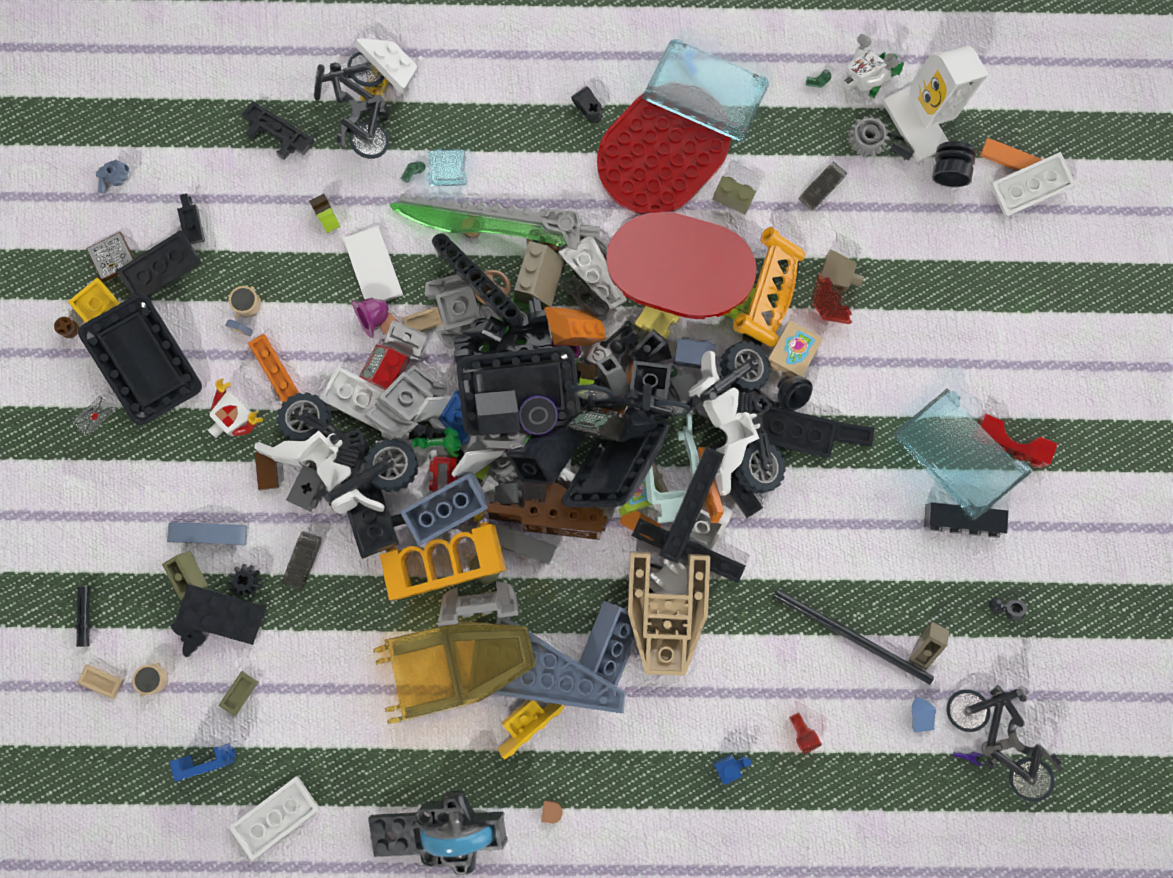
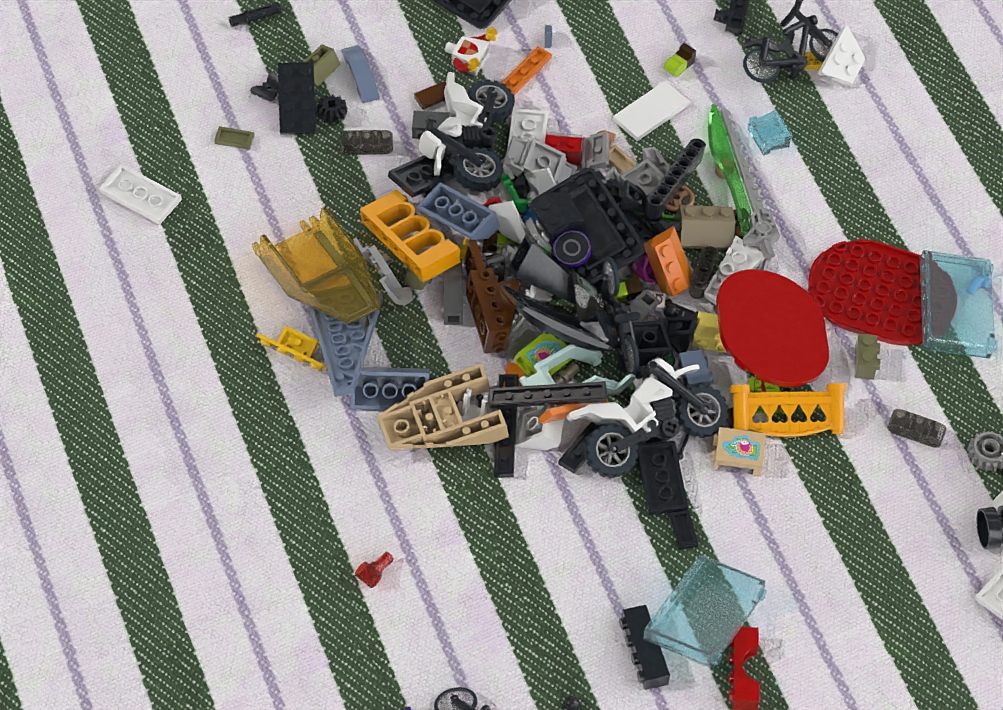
camera: 70 degrees right, 25 degrees down
(100, 681) = (206, 44): tan tile -> none
(150, 679) = (221, 74): piece -> none
(184, 768) = (173, 136): blue panel -> none
(244, 301) = (572, 32): piece -> none
(371, 314) = (607, 118): magenta piece -> none
(412, 169) = (754, 109): clear green arm -> none
(445, 837) = (198, 305): black piece -> none
(551, 812) = (222, 392): nougat tile -> none
(588, 104) = (889, 218): black piece -> none
(728, 768) = (317, 515): blue brick -> none
(794, 392) = (692, 464): black piece -> none
(829, 302) = (801, 460): clear red slope -> none
(840, 271) = (835, 465): dark tan torso -> none
(853, 636) = (485, 587): black piece -> none
(902, 150) = (991, 490): black pin -> none
(922, 715) = (432, 664): medium blue tile -> none
(929, 645) = (505, 650): dark tan slope -> none

